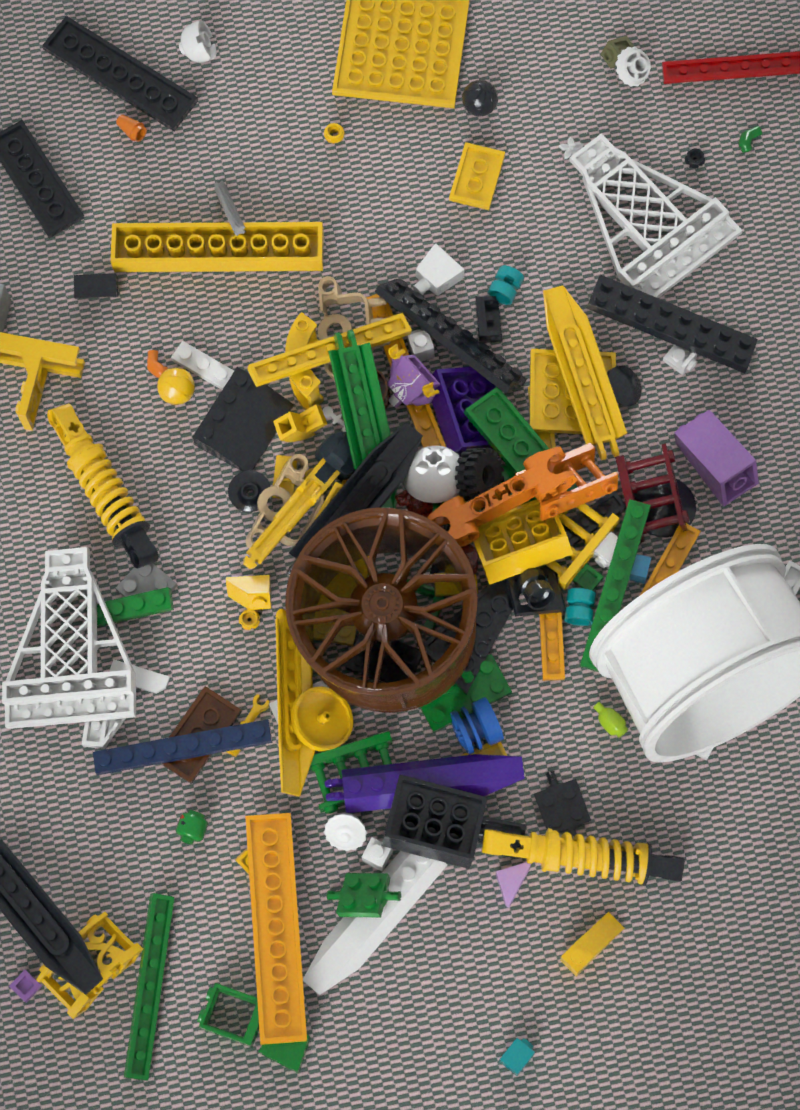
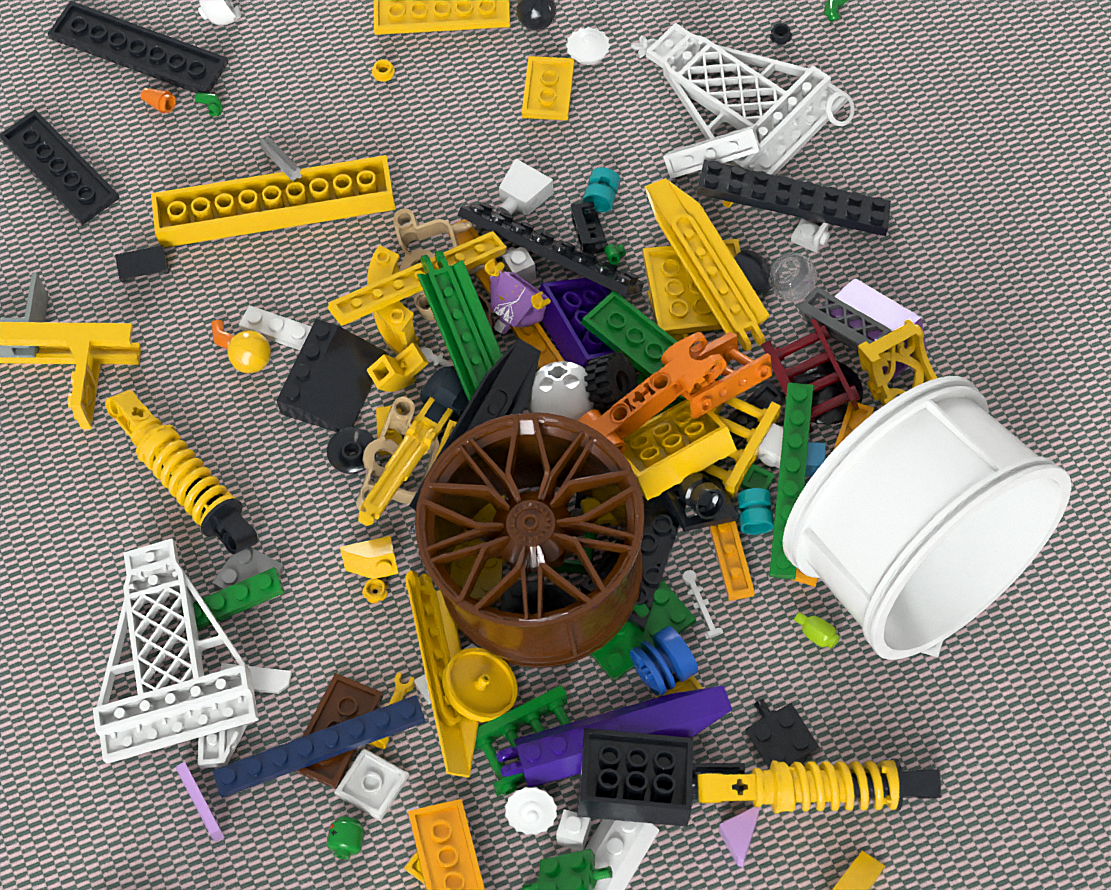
camera: 10 degrees left, 10 degrees down
(78, 775) = (199, 802): none -> lavender tile
(179, 139) = (213, 102): none -> green arm
(220, 784) = (371, 784): none -> white tile
(505, 346) = (614, 253): none -> green arm
(514, 654) = (689, 577): none -> white piece
(519, 141) = (588, 45): none -> white piece
(611, 265) = (720, 149): none -> white panel
(655, 399) = (792, 277): none -> clear helmet
(686, 458) = (835, 326): none -> dark grey fence
(710, 488) = (874, 357): none -> yellow fence
(721, 240) = (829, 112): none -> white piece

